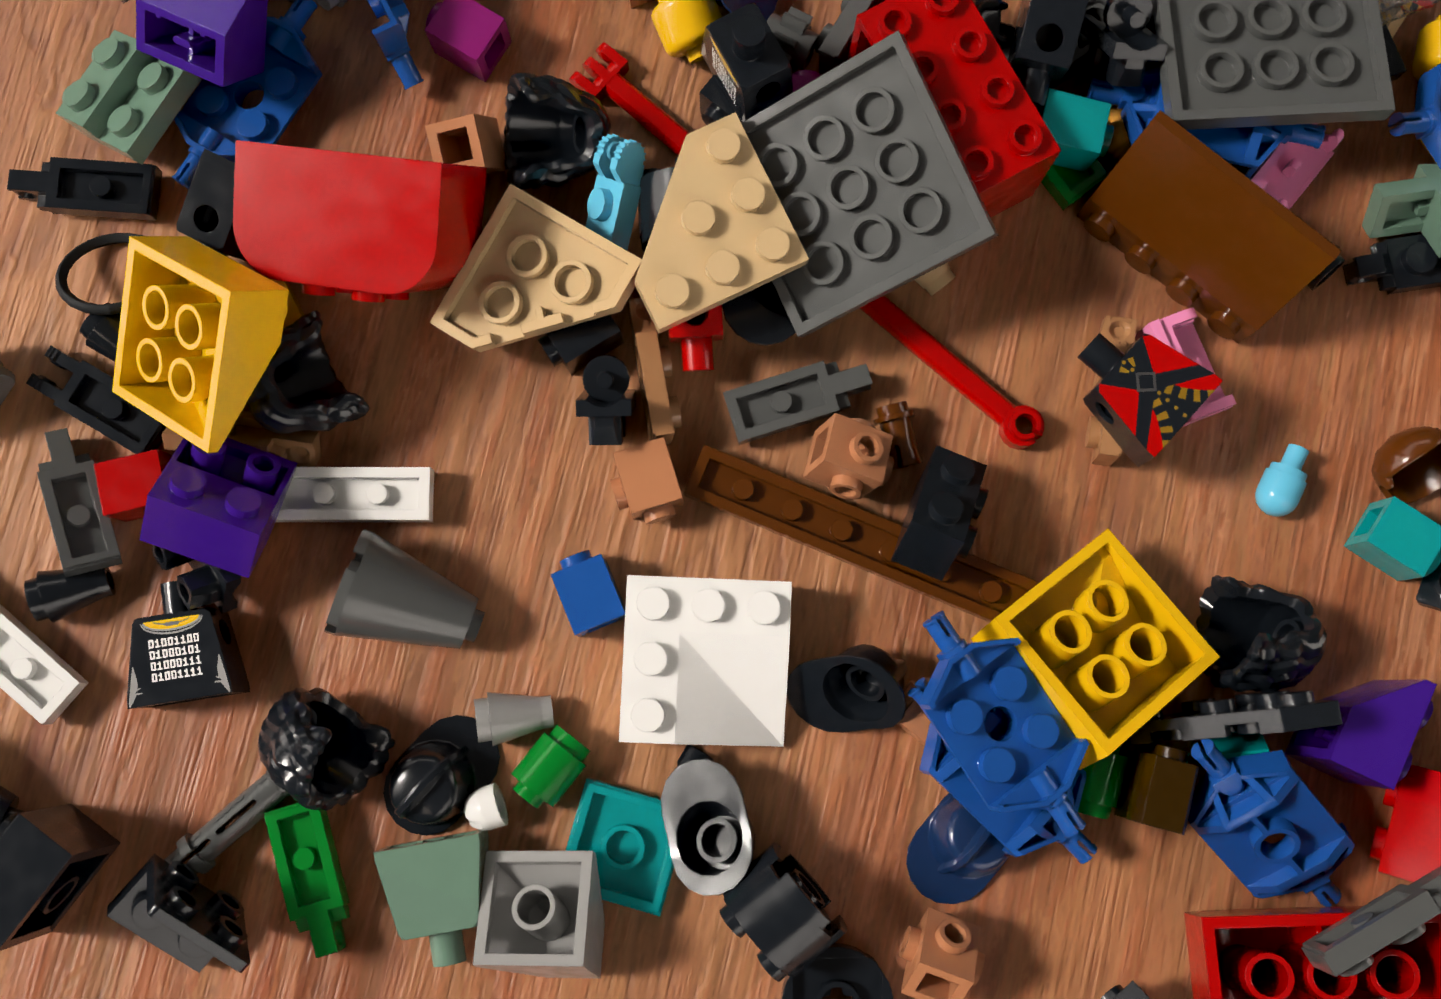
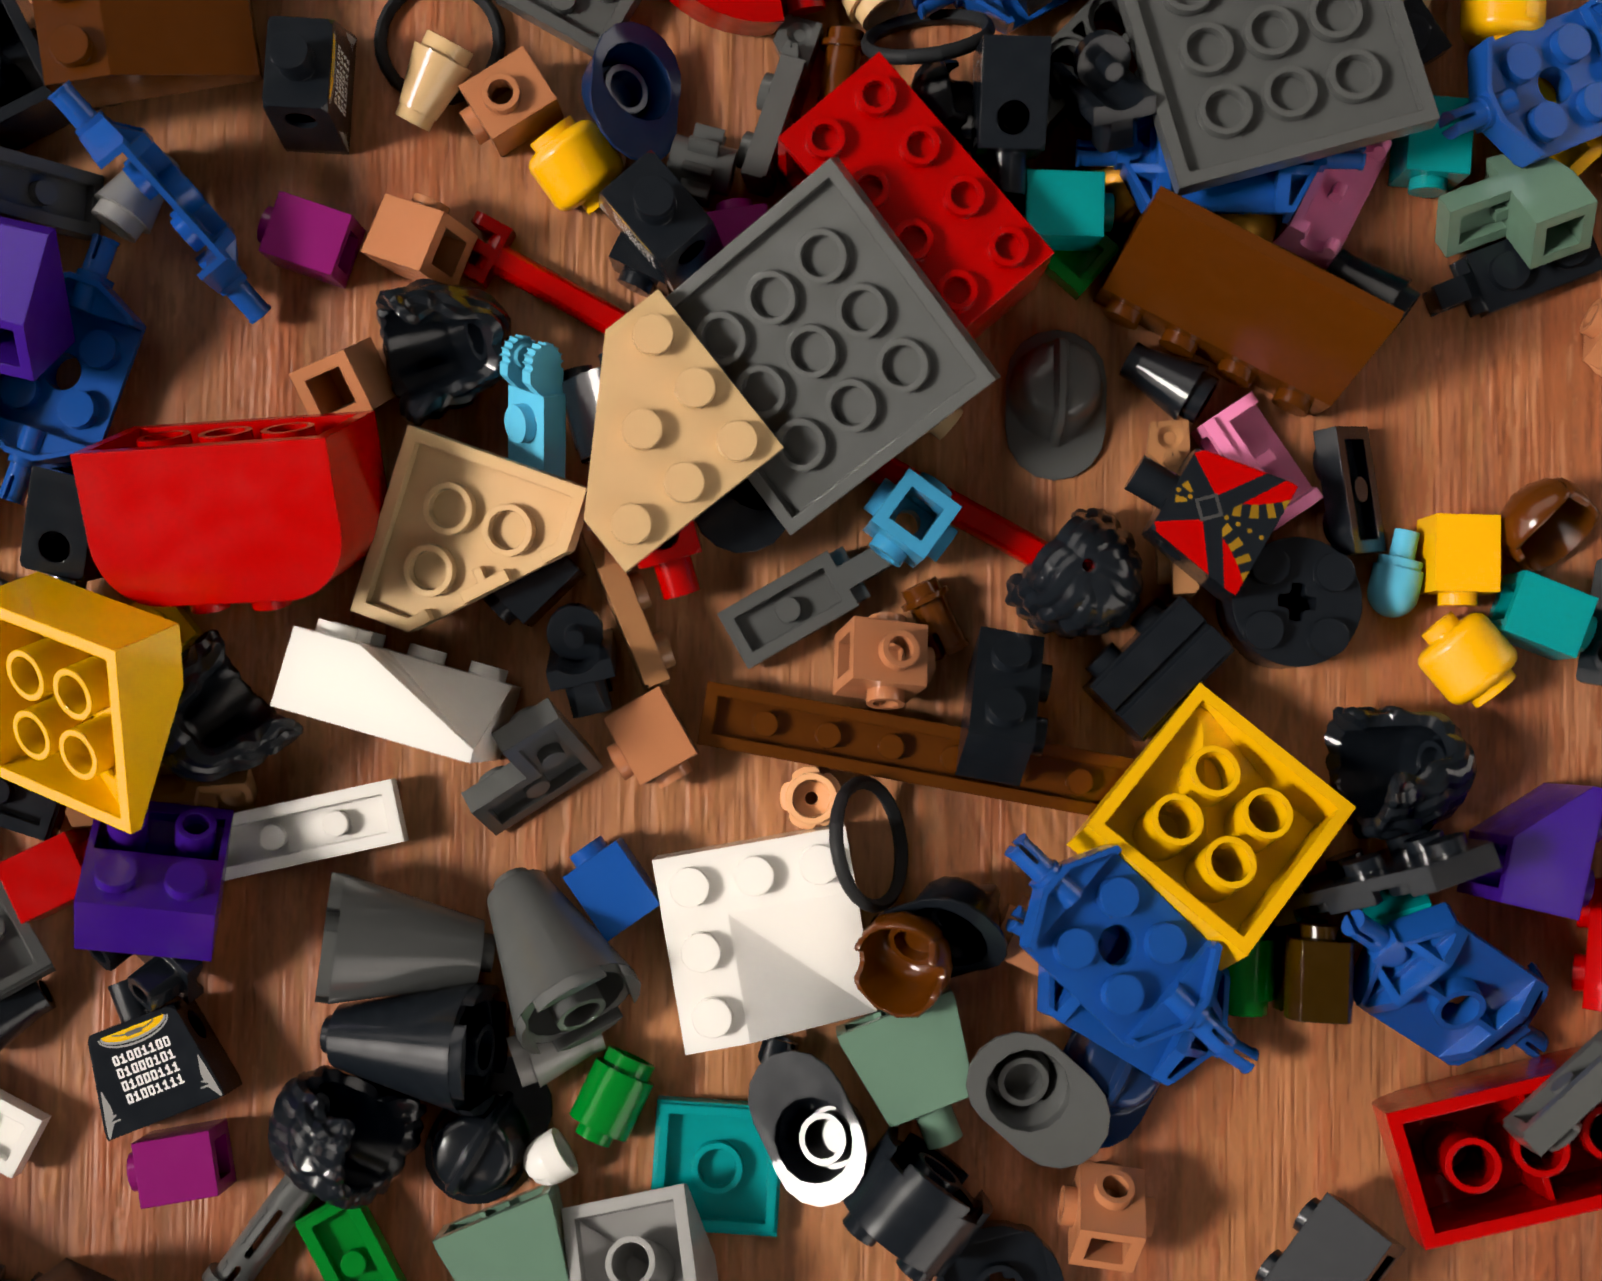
camera: 15 degrees left, 5 degrees up
(183, 744) = (182, 1163): none -> magenta brick
(406, 687) = (424, 1044): none -> black cone
(416, 374) = (406, 698): none -> white slope
(529, 646) = (555, 964): none -> dark grey cone
(552, 48) = (419, 239): none -> nougat brick
(559, 480) = (544, 760): none -> dark grey plate
(767, 544) = (794, 792): none -> light nougat plate
(782, 602) = (838, 851): none -> black tyre
(807, 794) = (912, 1066): none -> sand green torso
(815, 705) = (903, 964): none -> reddish brown hair
(904, 846) = (1038, 1099): none -> dark grey piece
(907, 334) = (927, 502): none -> dark azure brick
(1017, 439) = (1073, 602): none -> black hair
(1030, 290) = (1055, 404): none -> dark grey piece
(1072, 513) = (1156, 666): none -> black brick
(1127, 288) = (1171, 382): none -> black cone
(1222, 481) = (1326, 605): none -> black brick
(1258, 405) = (1349, 490): none -> black plate
(1330, 560) = (1467, 658): none -> yellow head
(1339, 477) = (1460, 557): none -> yellow brick
(1370, 154) = (1429, 161): none -> teal brick

